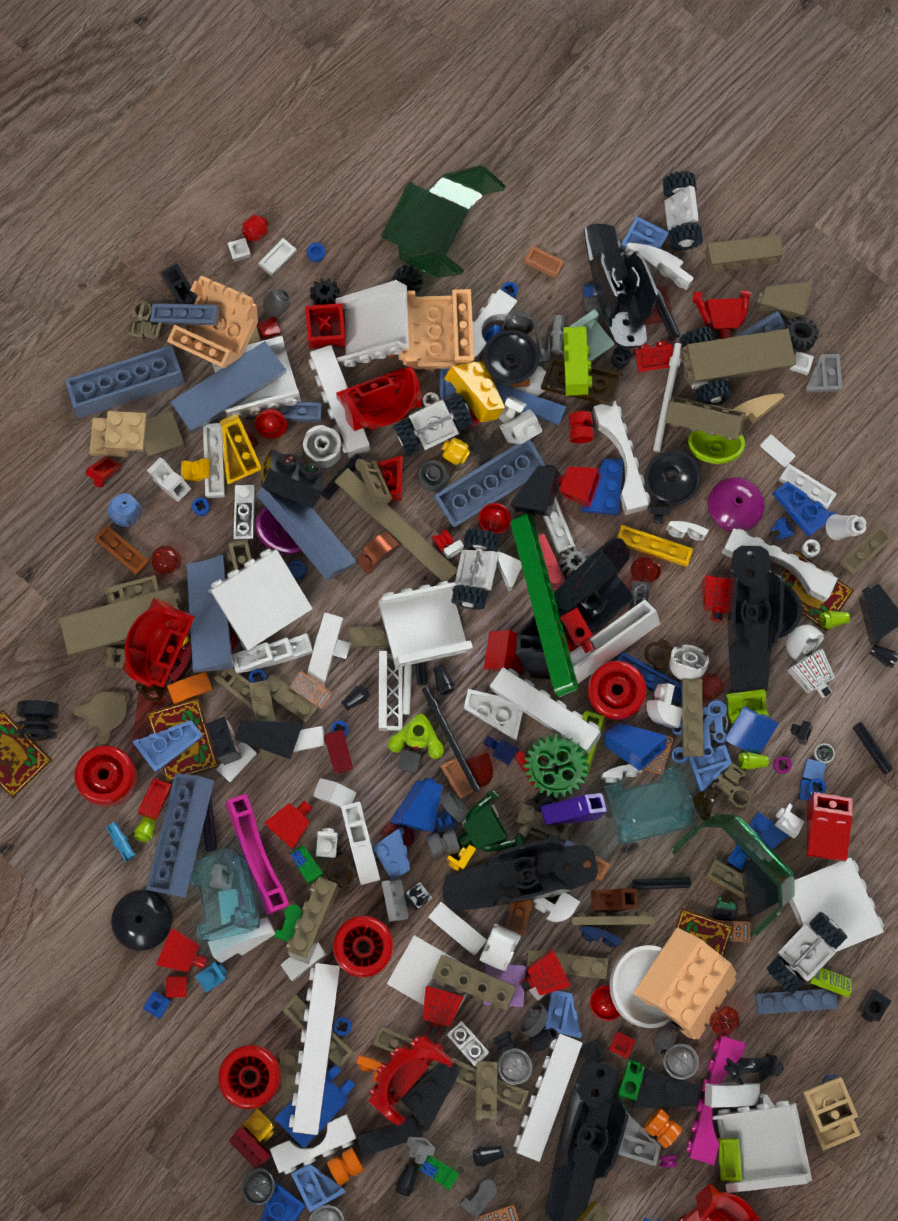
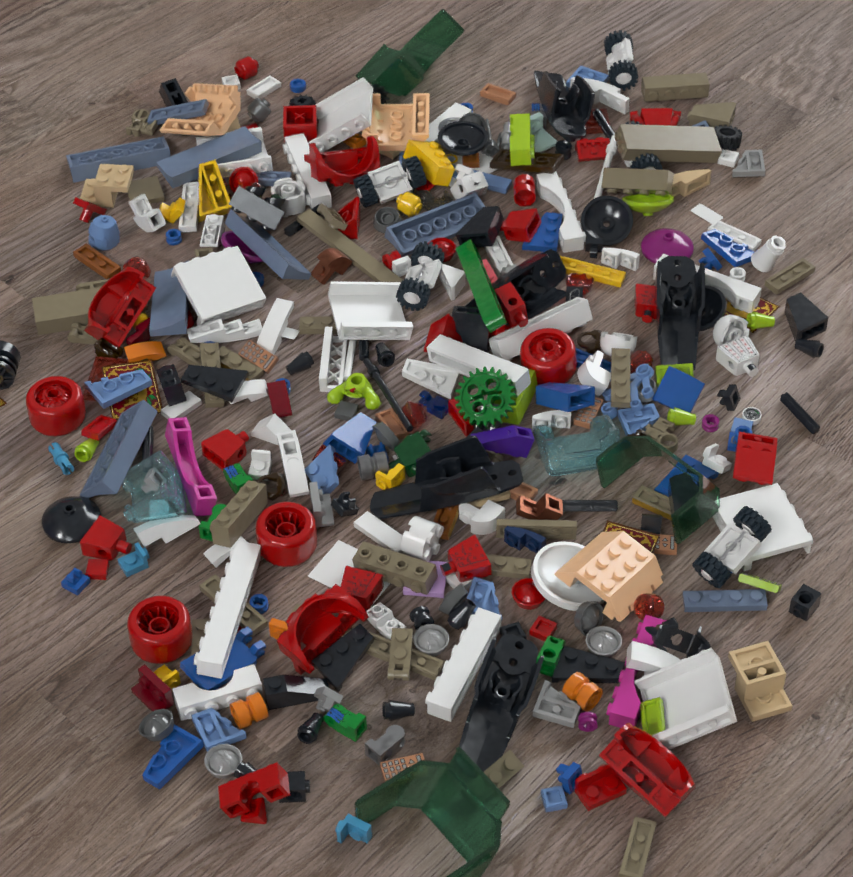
camera: 10 degrees right, 30 degrees down
(105, 712) = (62, 365): dark tan tile -> none

